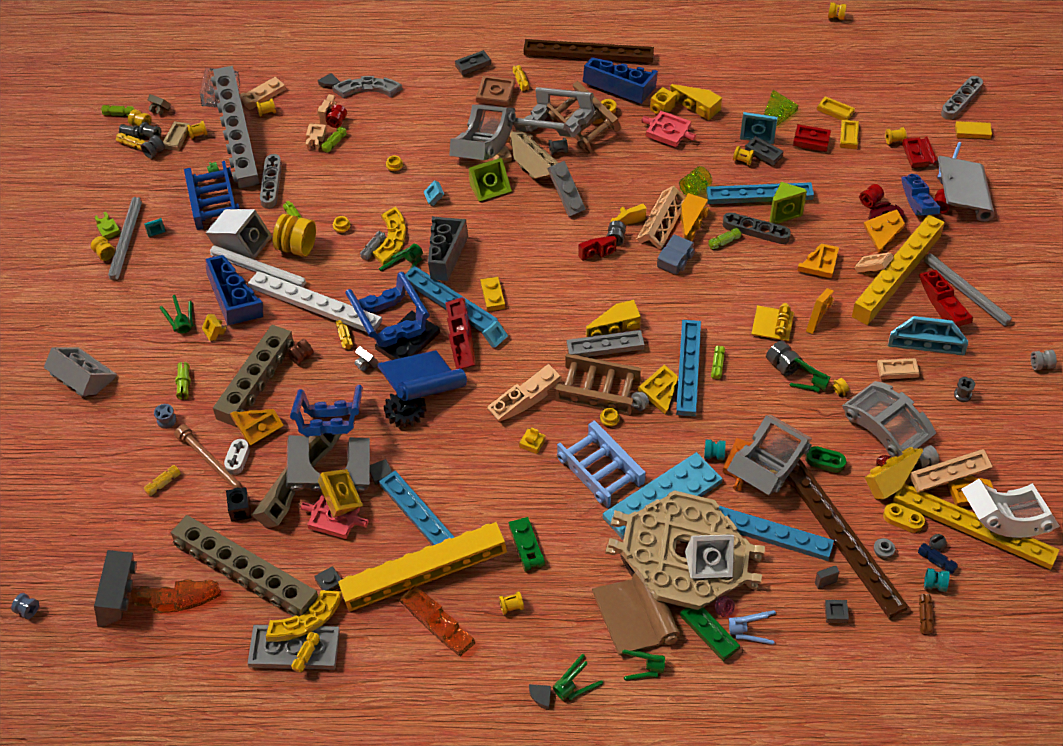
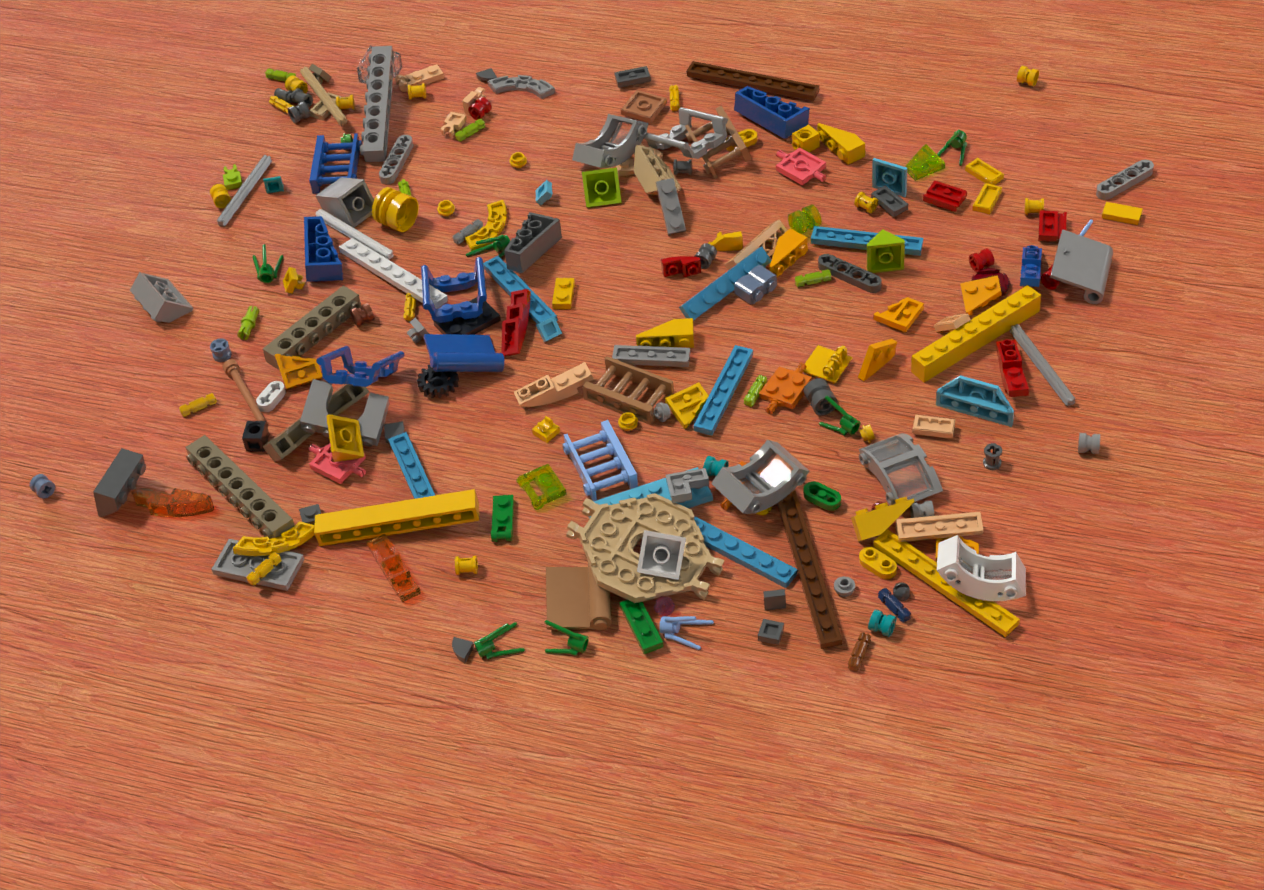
camera: 20 degrees right, 5 degrees down
(173, 126) = (323, 95): none -> tan axle
(557, 497) = (546, 482): none -> clear neon green plate
(646, 260) = (723, 285): none -> dark azure plate
(695, 474) = (681, 483): none -> light grey plate
(746, 354) = (785, 388): none -> orange plate
(800, 83) = (957, 140): none -> green plant

